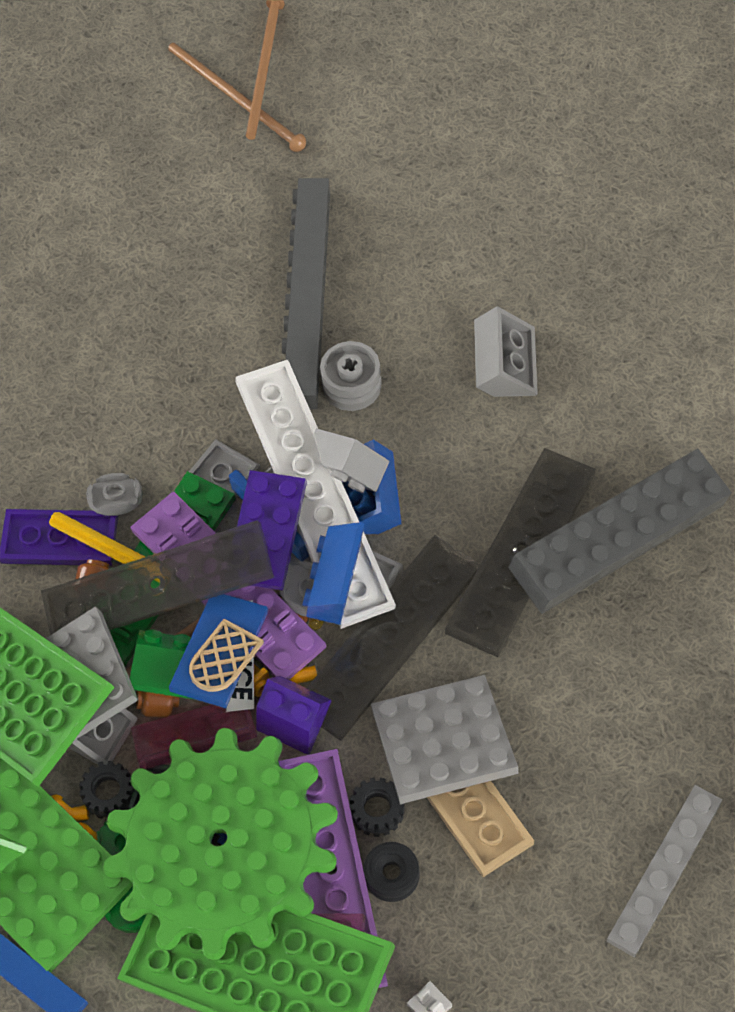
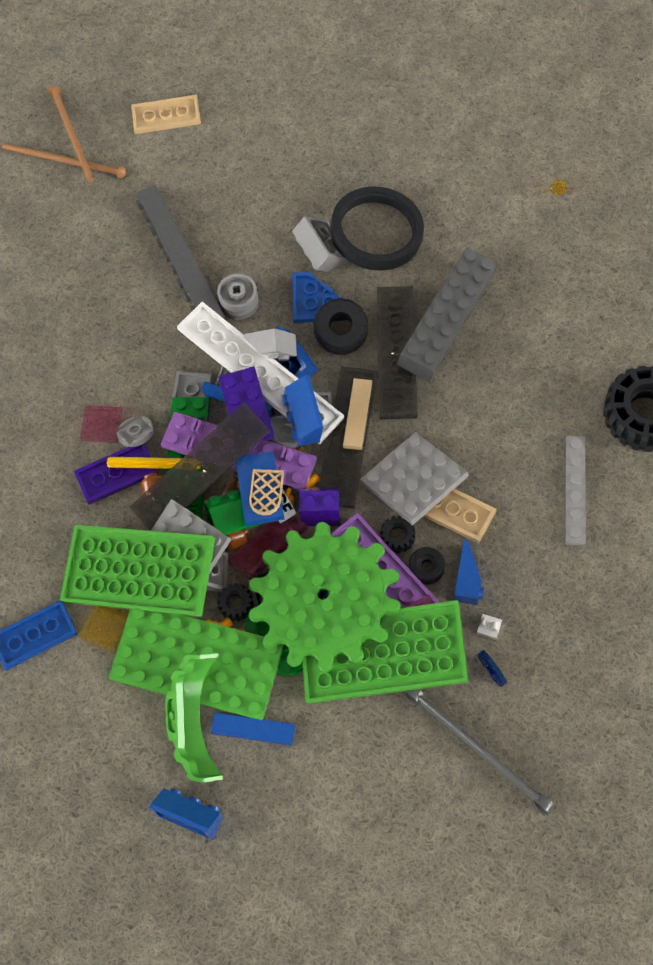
camera: 25 degrees left, 5 degrees up
(79, 463) = (101, 424): none -> clear pink tile
(401, 92) = (165, 114): none -> tan tile
(416, 611) = (357, 414): none -> tan tile
(434, 924) = (468, 583): none -> blue slope
(447, 458) = (340, 309): none -> black tyre
(453, 429) = (309, 296): none -> blue plate
(601, 315) = (376, 195): none -> black tyre

